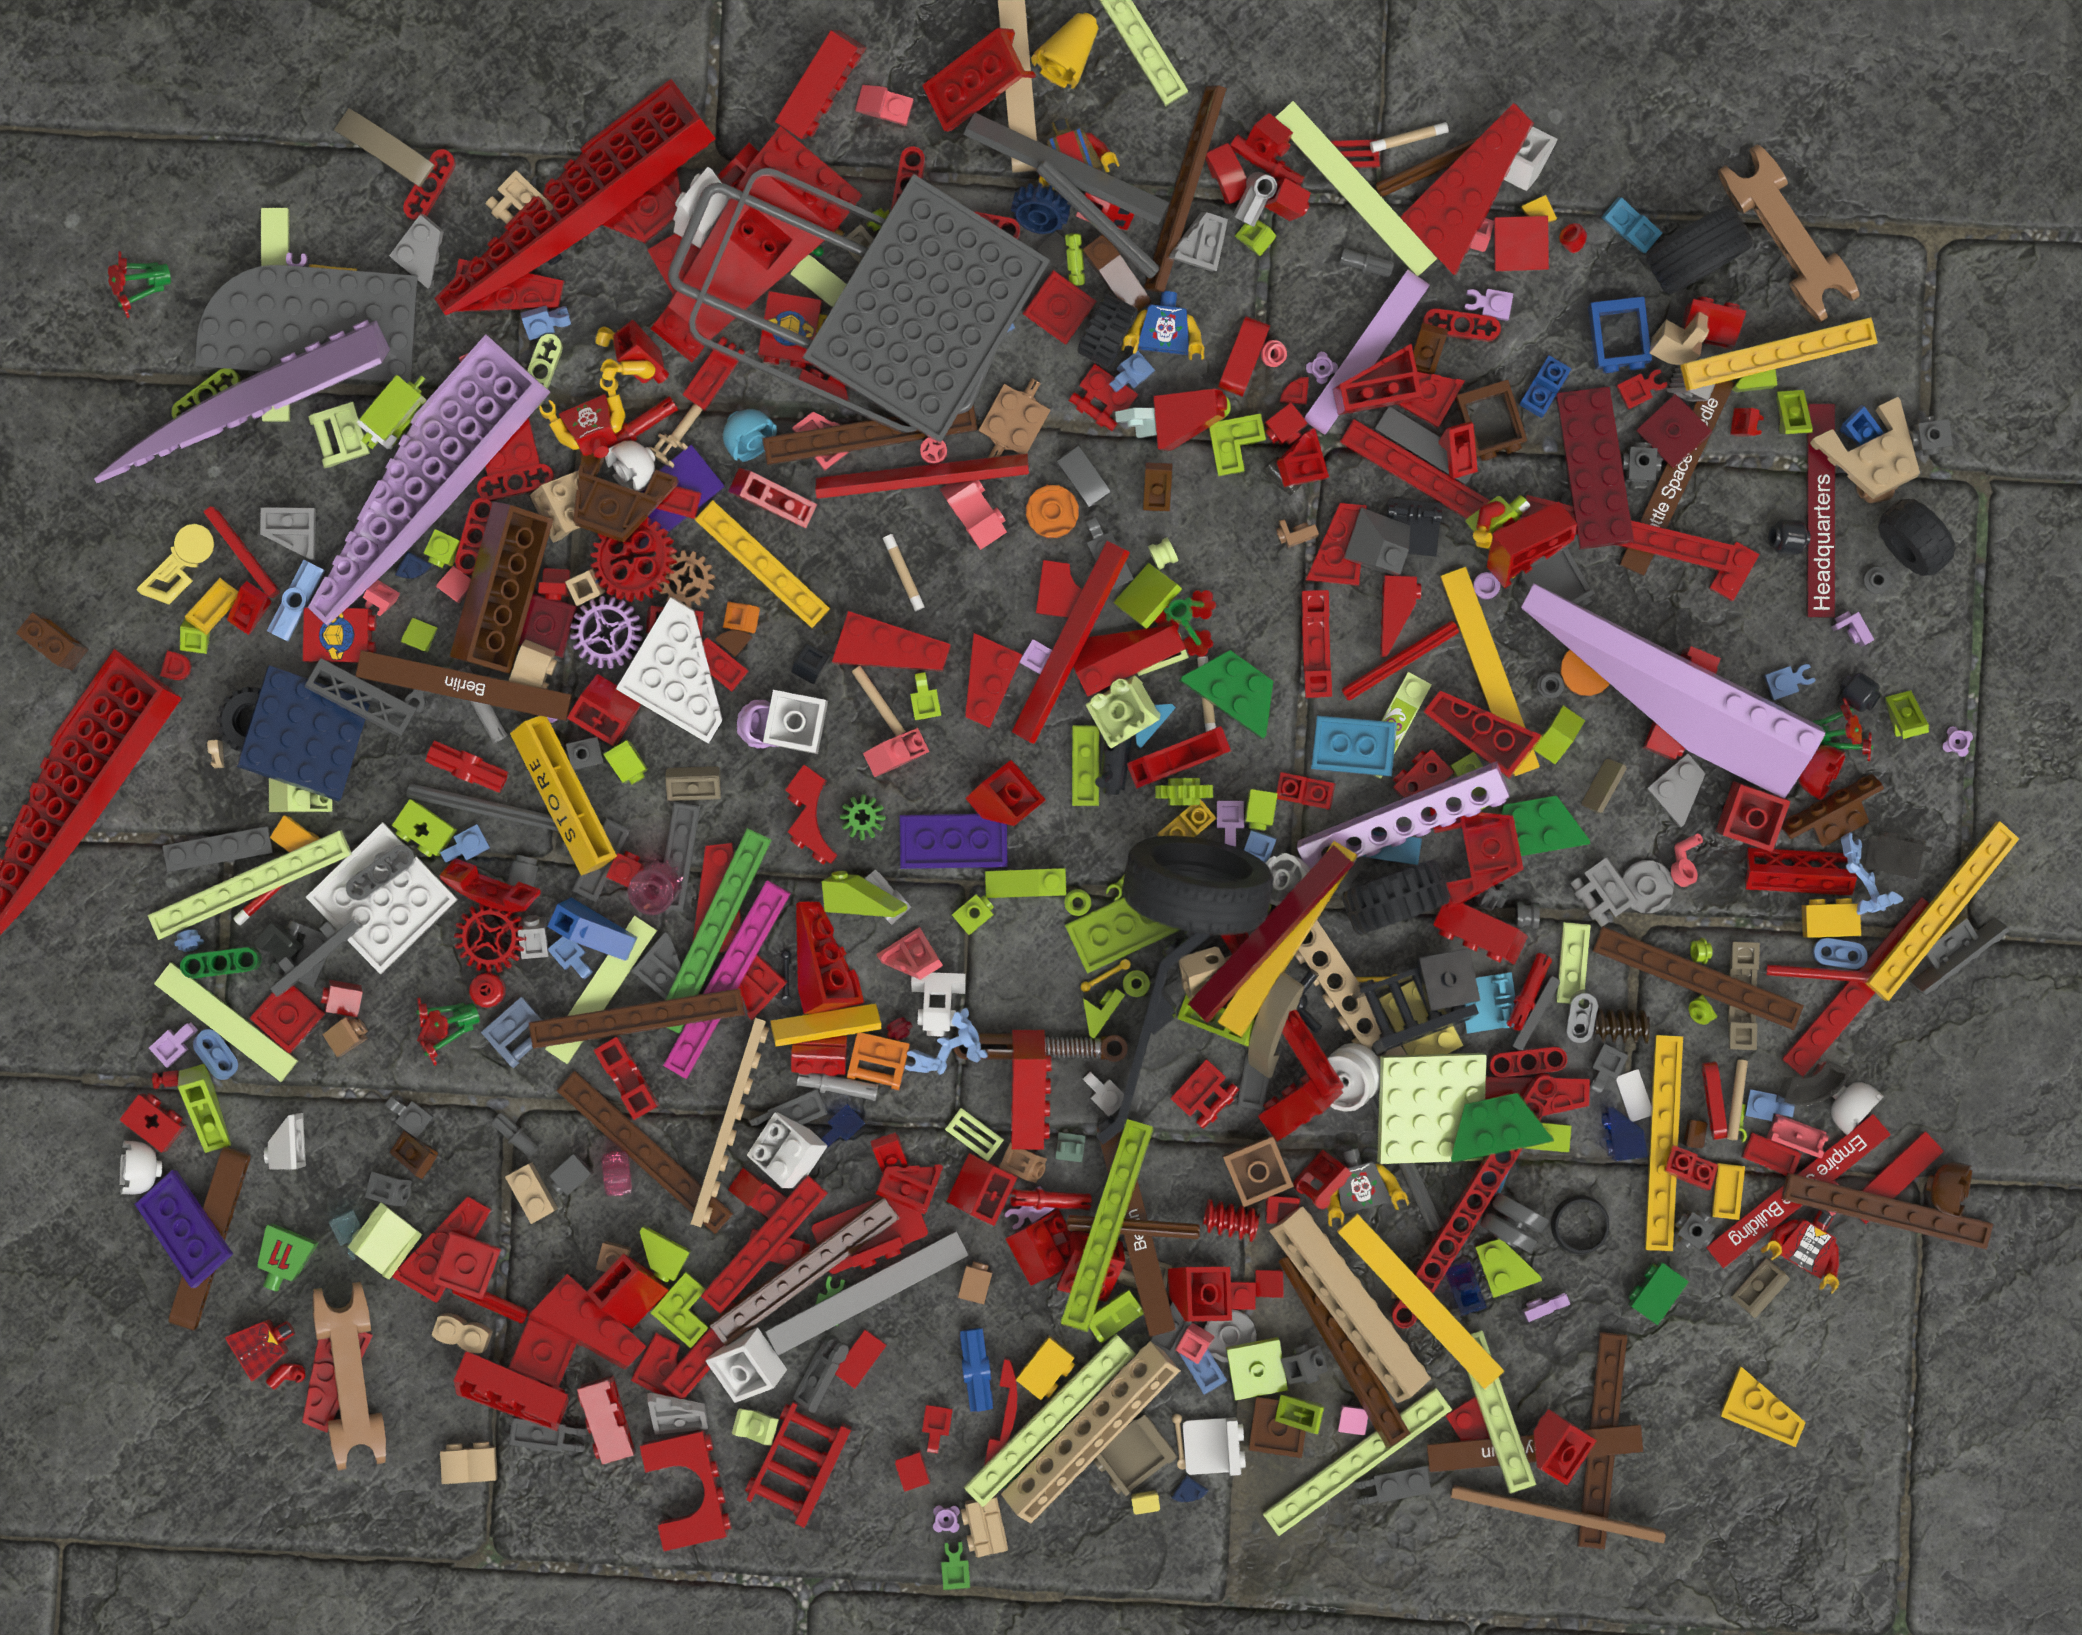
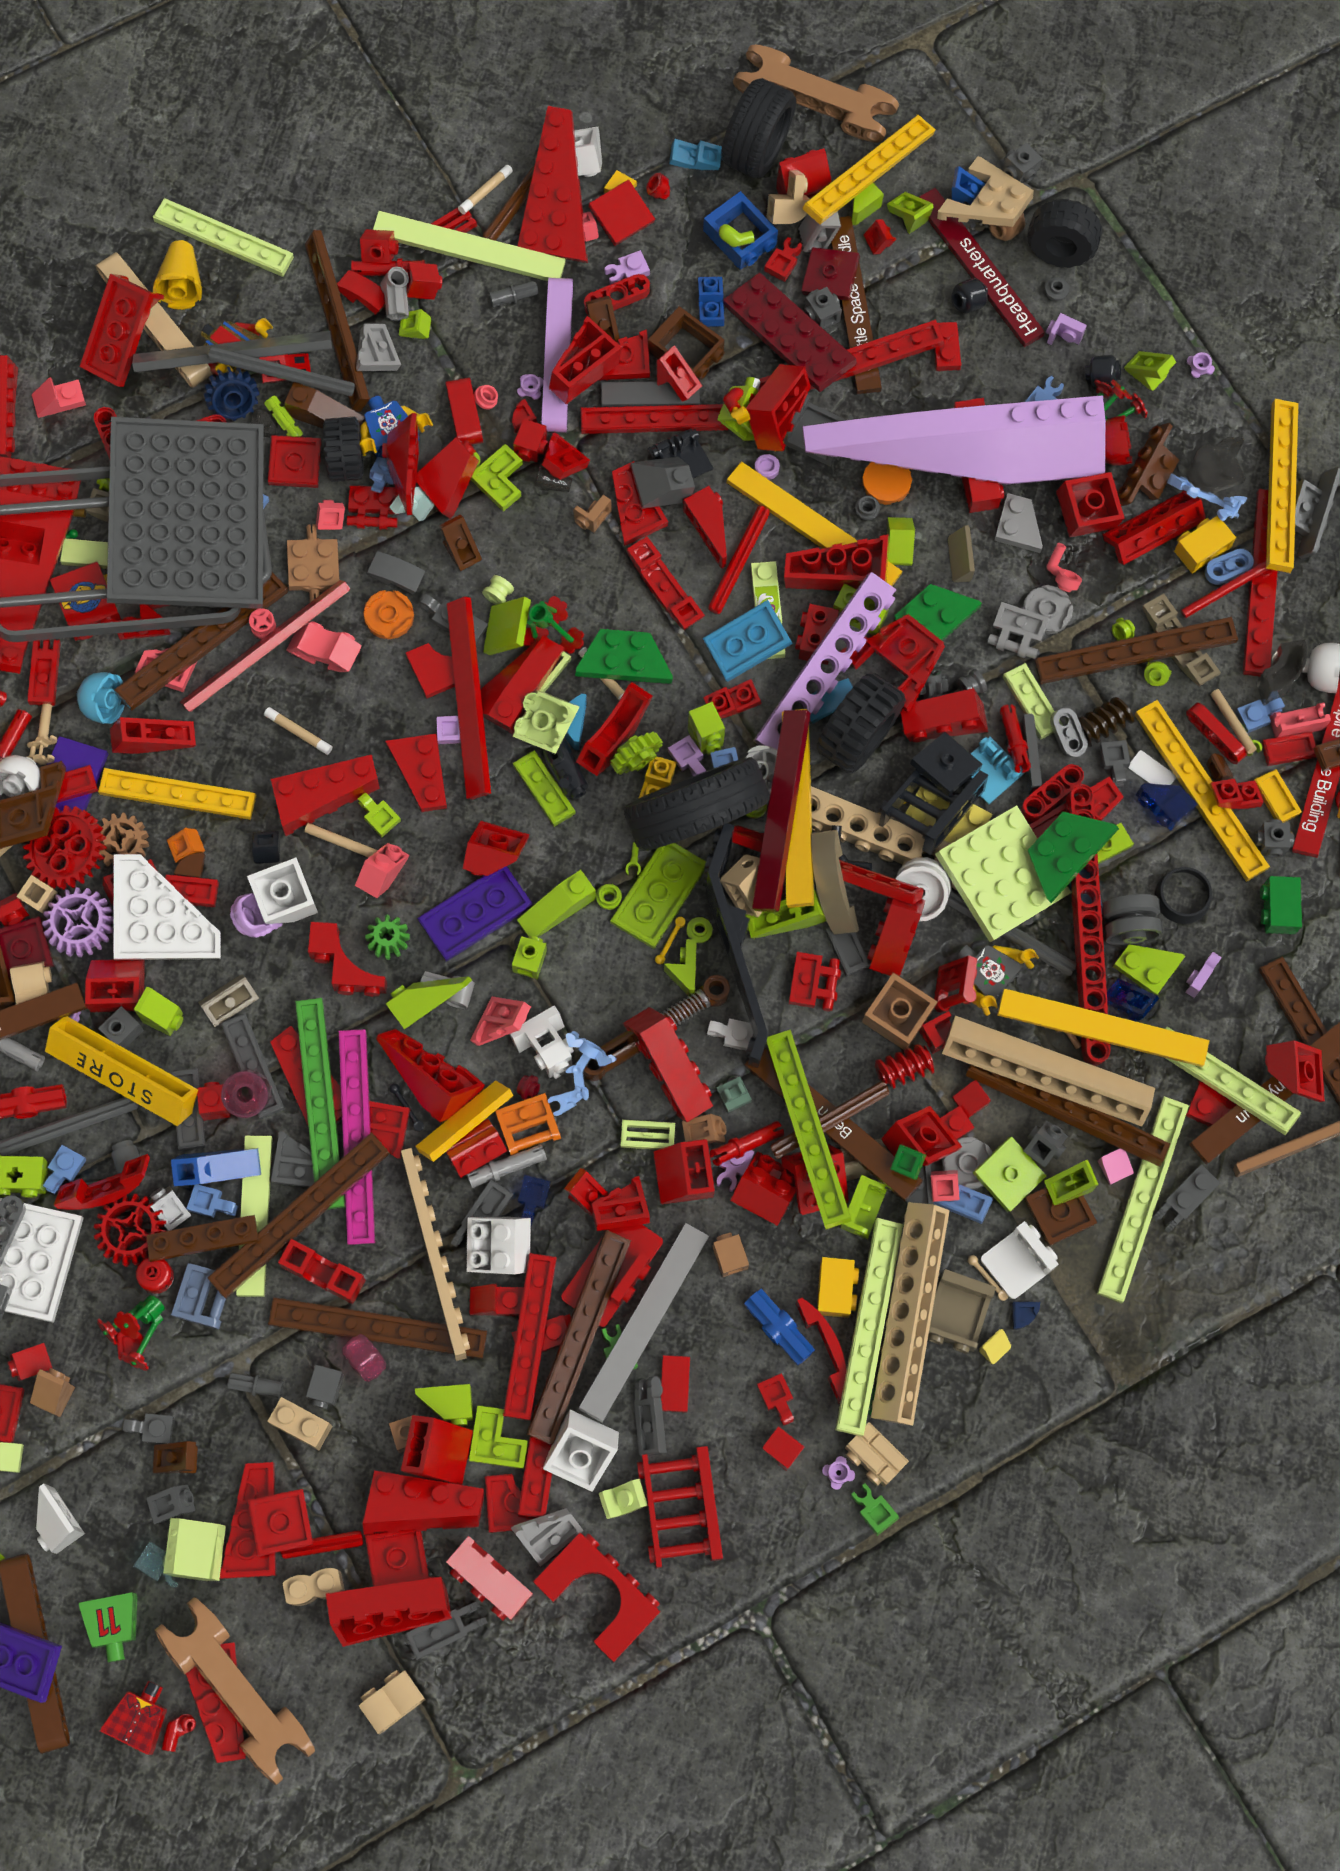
camera: 40 degrees left, 15 degrees down
(544, 987) = (202, 1238): none -> reddish brown bracket
(1058, 383) = (330, 515): none -> coral tile
(1151, 380) = (403, 459): none -> red wedge
(1172, 1308) = (908, 1161): none -> green tile
(1603, 345) = (734, 238): none -> lime arm

